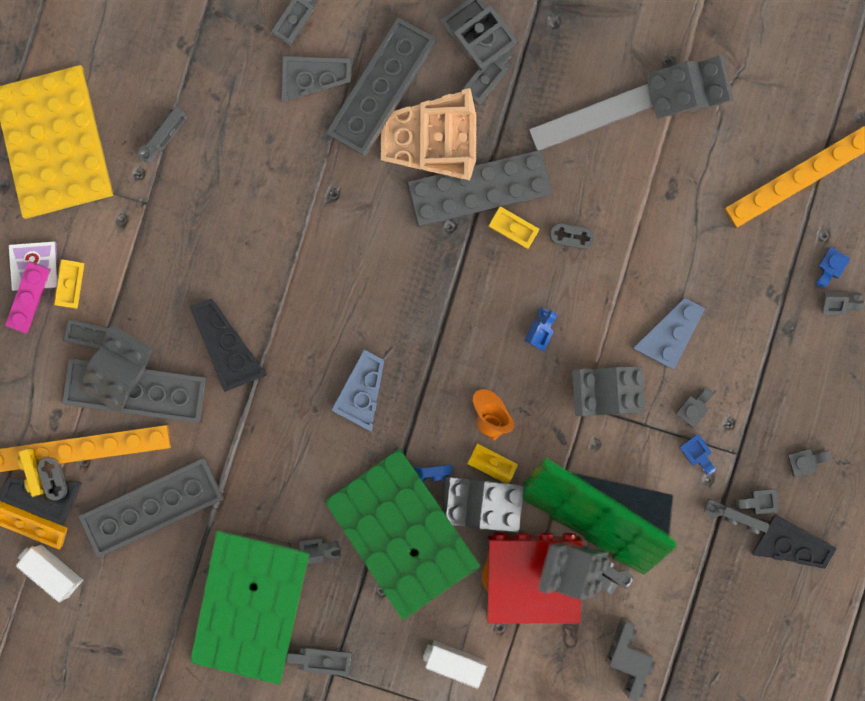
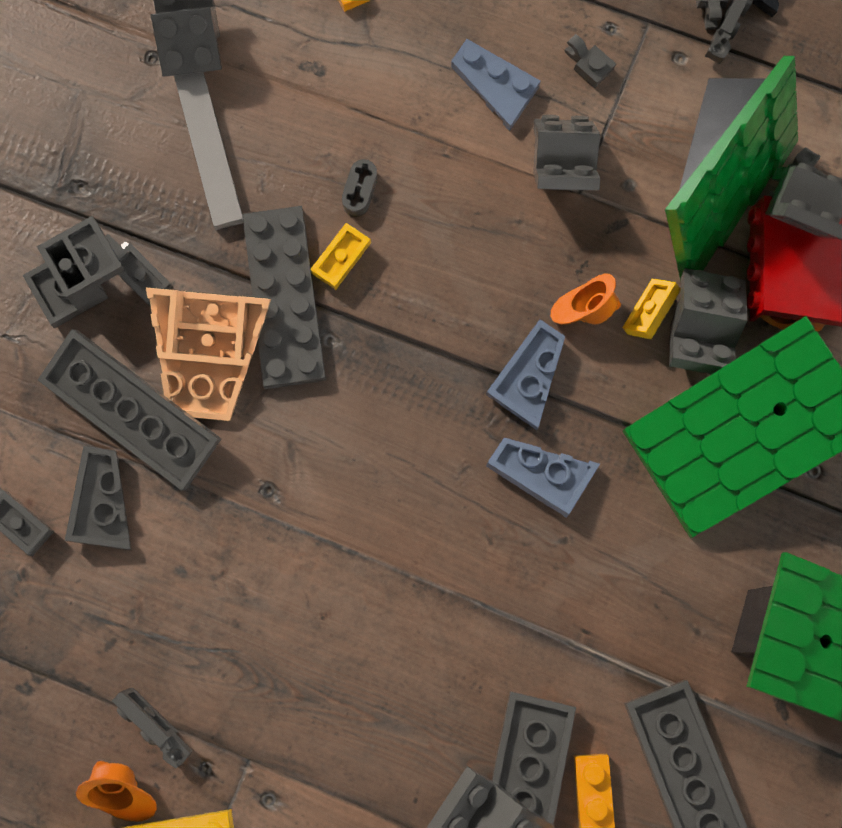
camera: 85 degrees left, 10 degrees down
(118, 116) = (115, 791): none -> orange piece
(228, 353) = (475, 657): black wing -> none
(319, 550) = (762, 555): dark grey plate -> none
(434, 376) = (528, 375): none -> sand blue wing
(436, 473) = (660, 380): blue plate -> none
(540, 331) = (479, 233): blue plate -> none
(697, 452) = (648, 63): blue plate -> none

